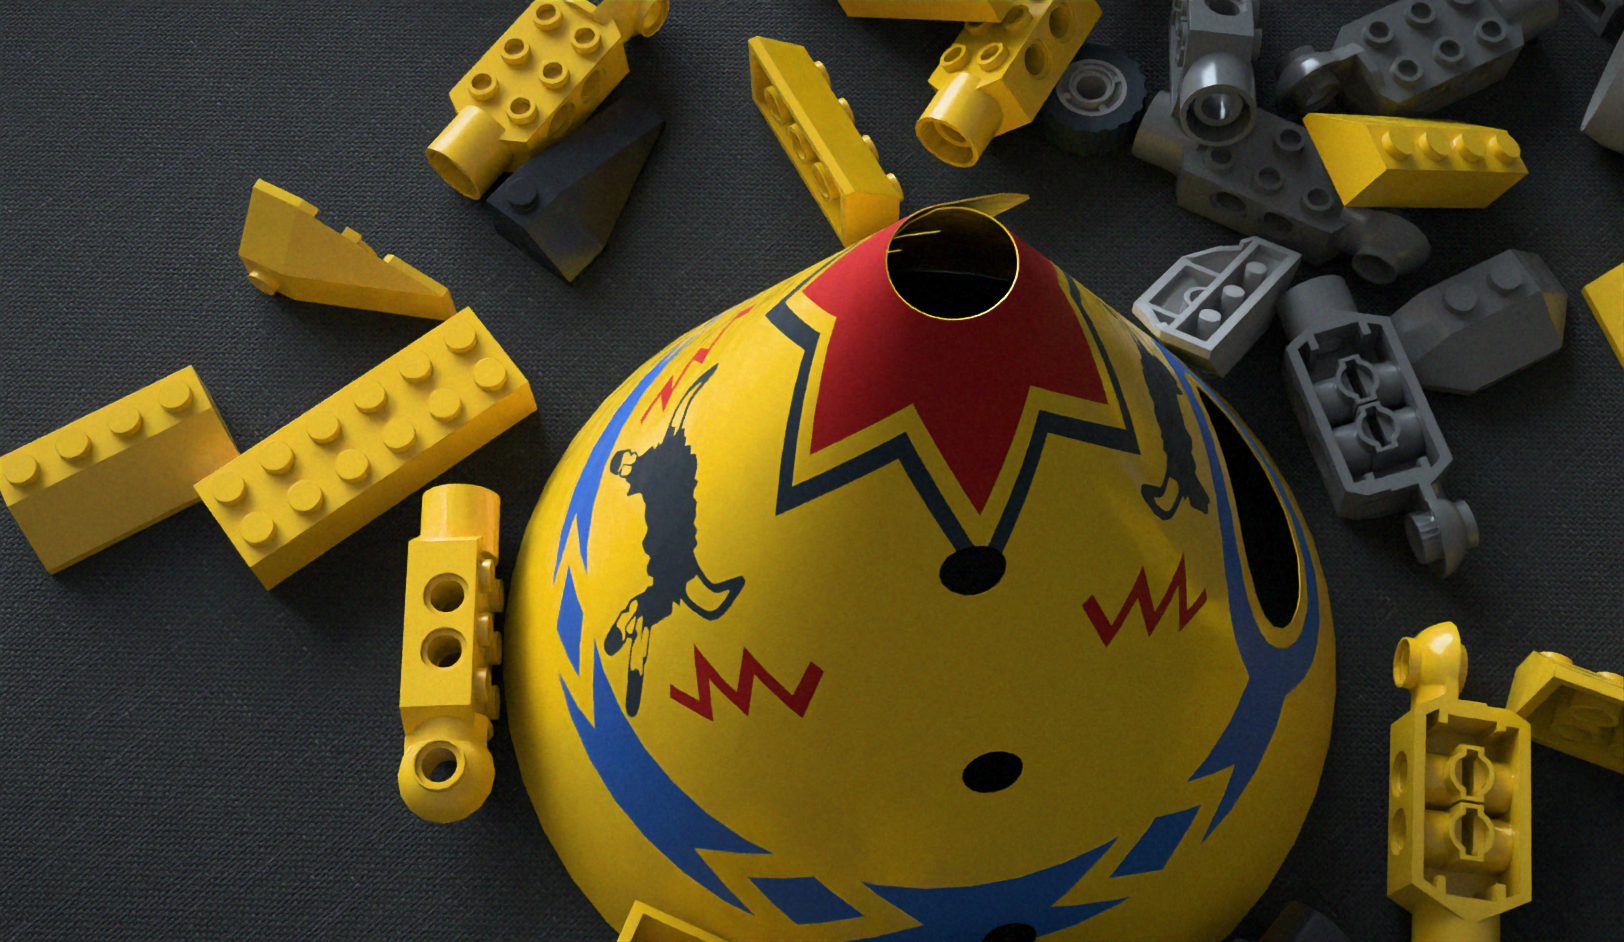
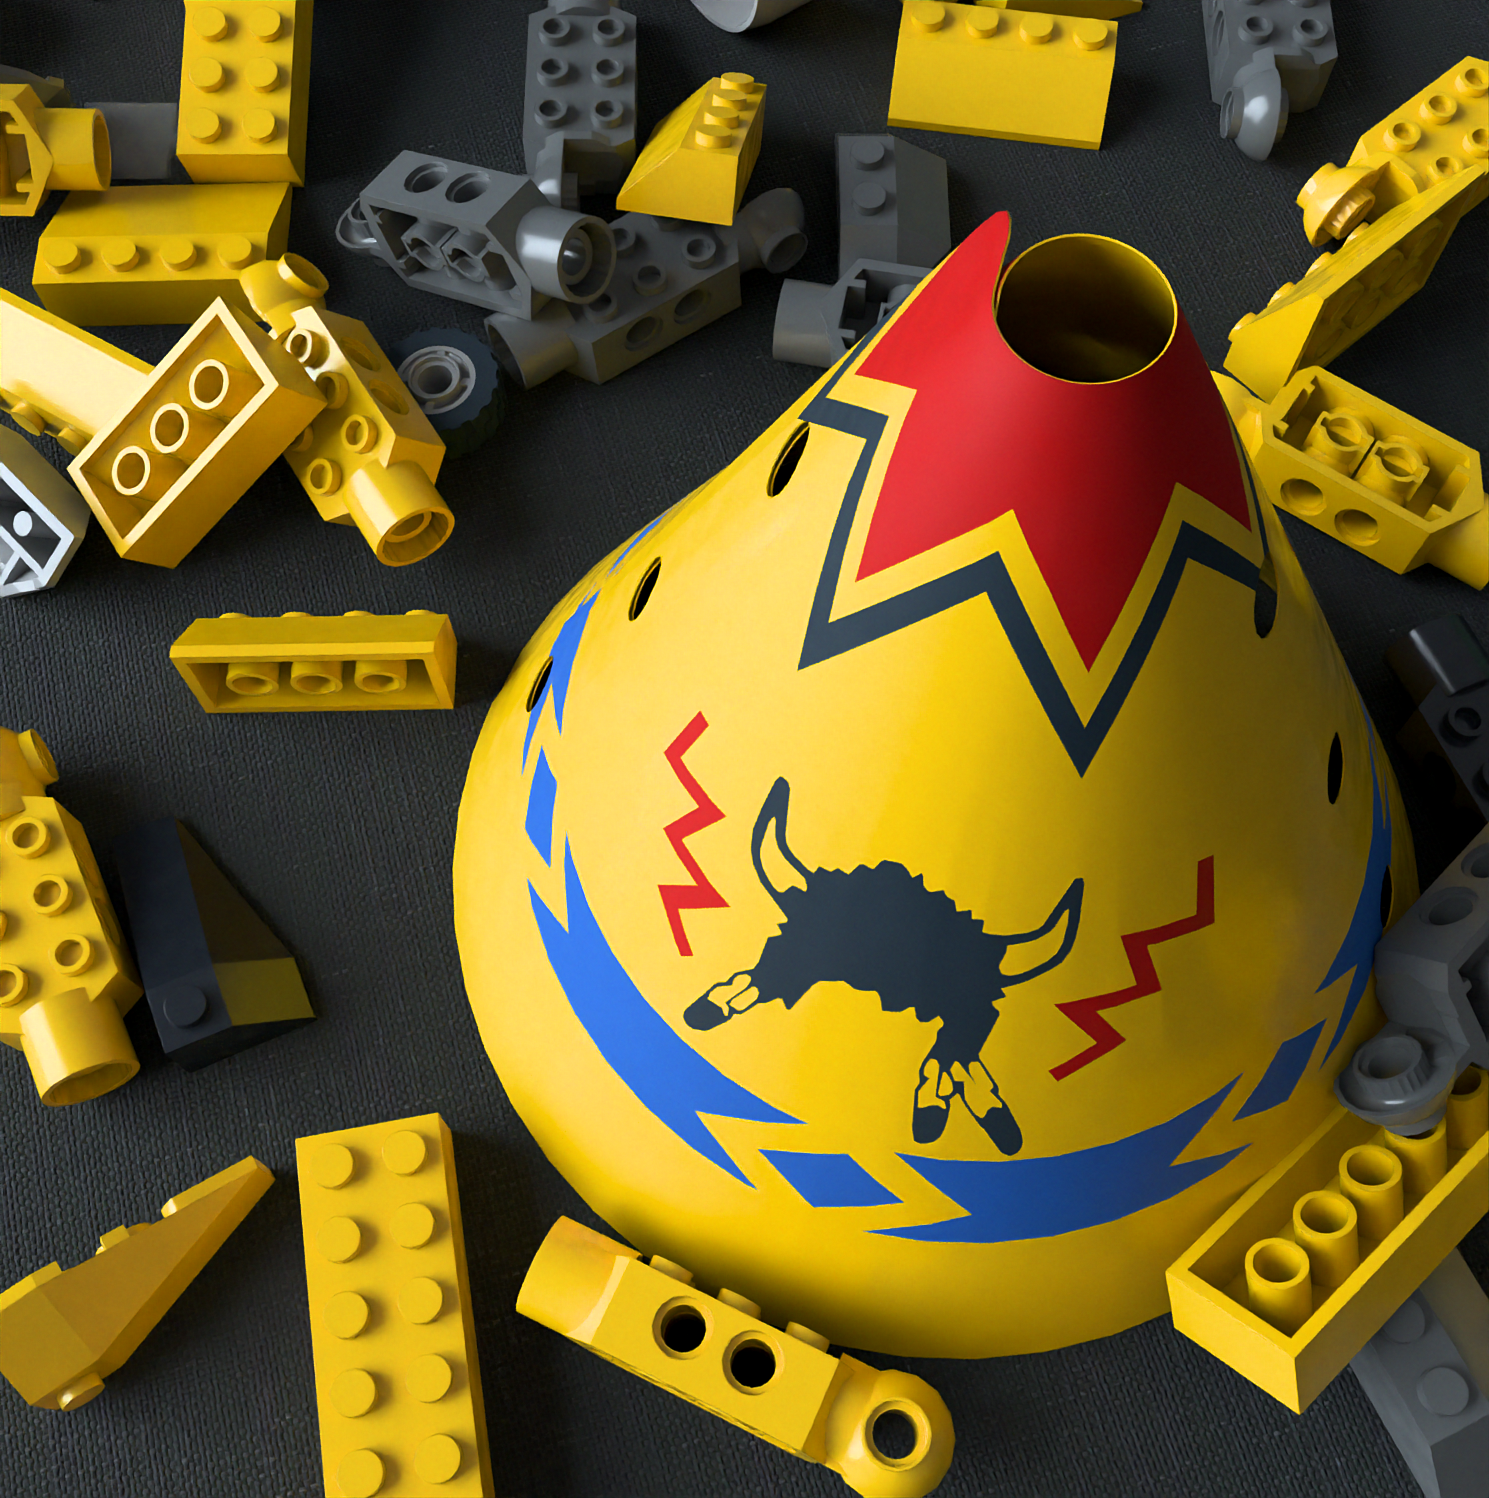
camera: 65 degrees left, 0 degrees up
(1217, 302) = (733, 383): light grey wedge -> none

